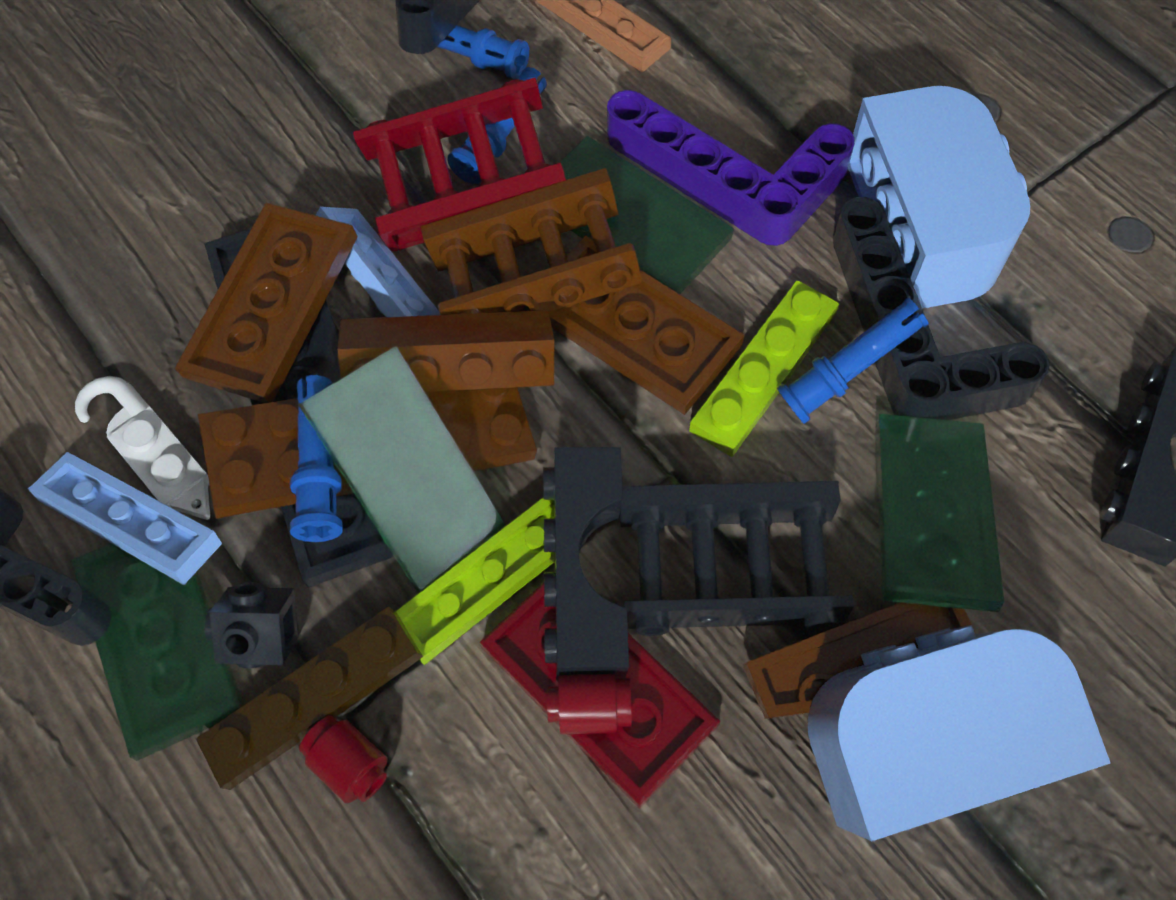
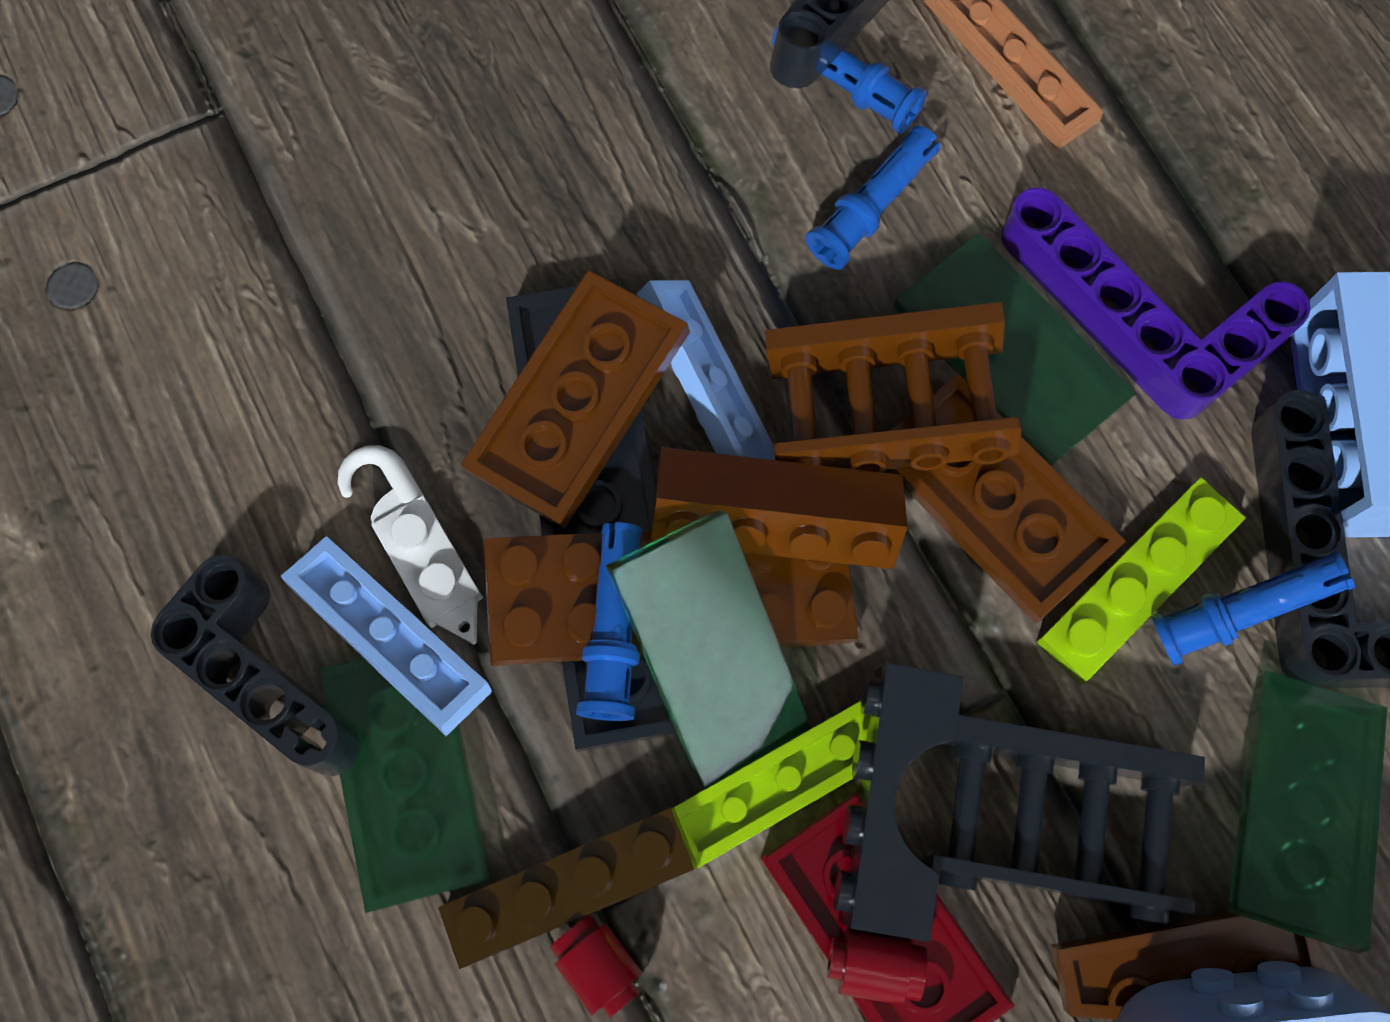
camera: 10 degrees right, 10 degrees up
(253, 625) = (515, 793): black brick -> none
(383, 138) = (749, 318): dark red fence -> none

